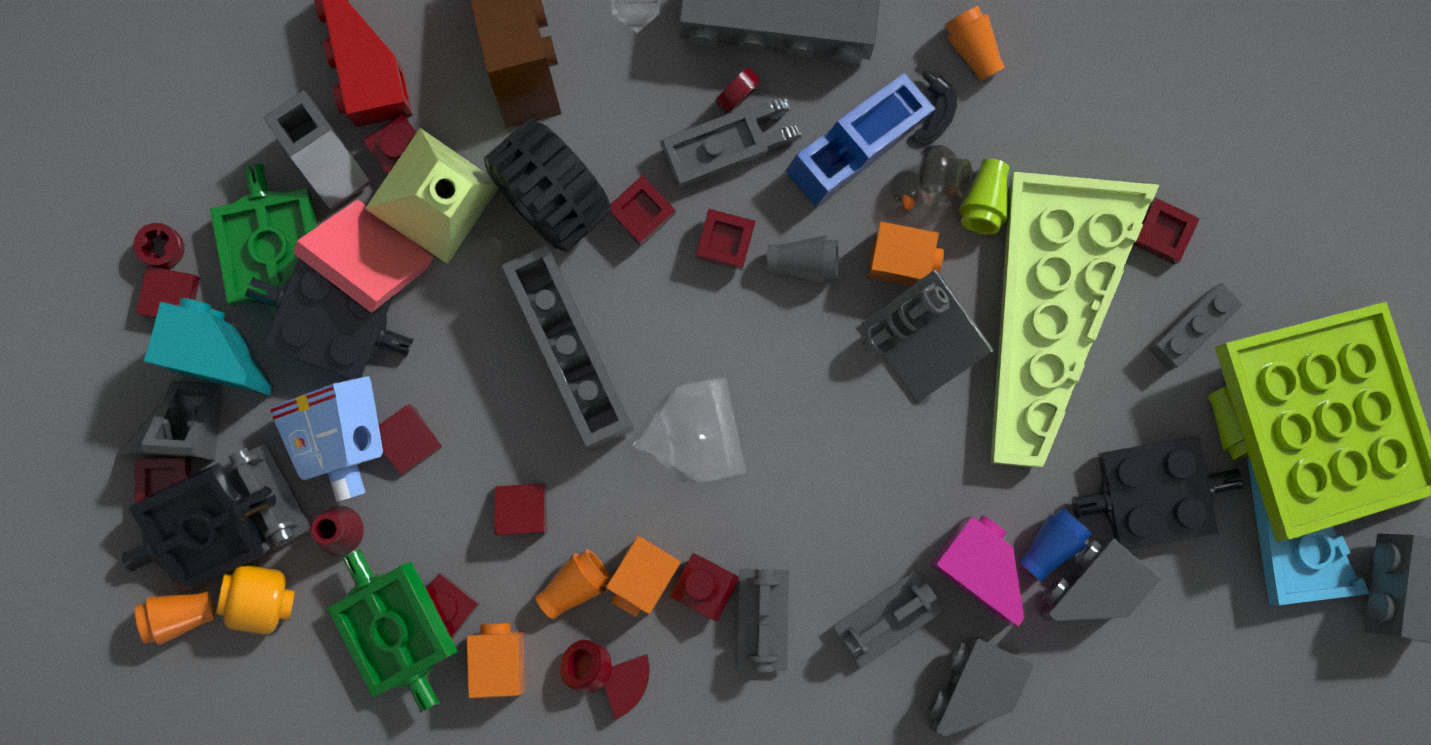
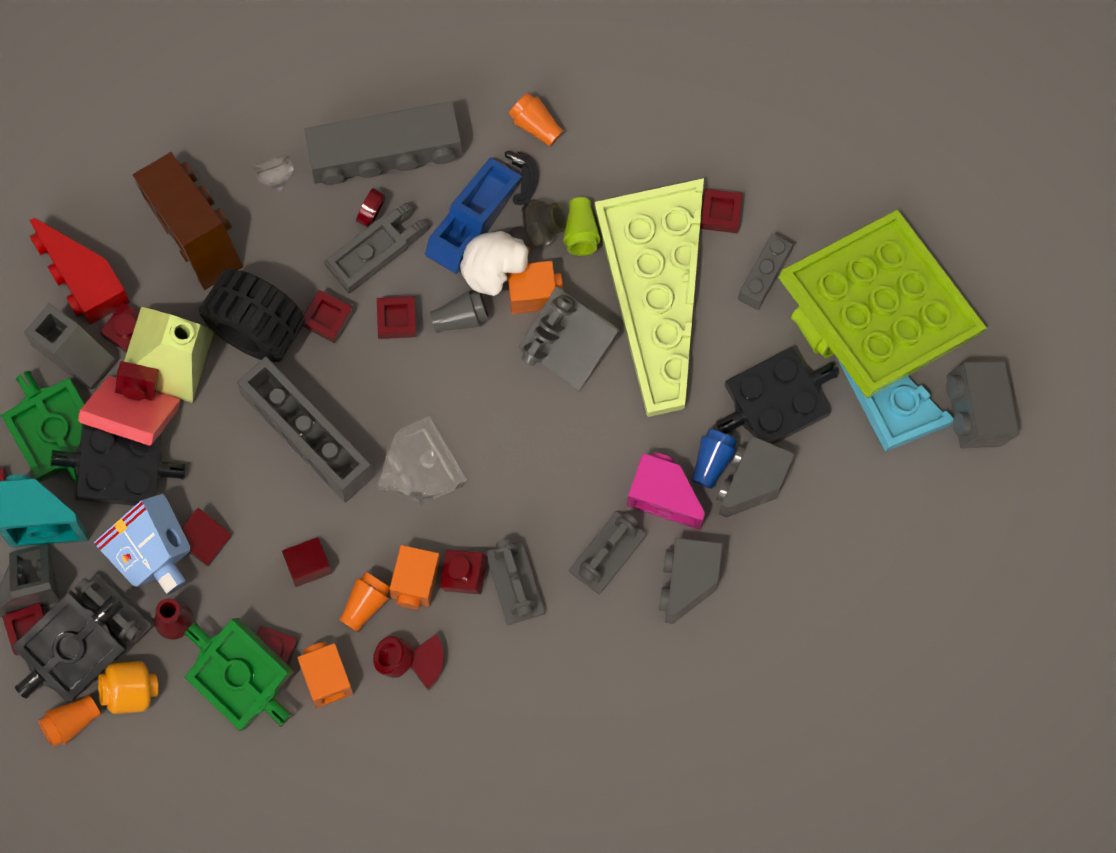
camera: 15 degrees left, 10 degrees down
(381, 223) = (136, 381): none -> dark red plate
(866, 206) = (490, 258): none -> white hair

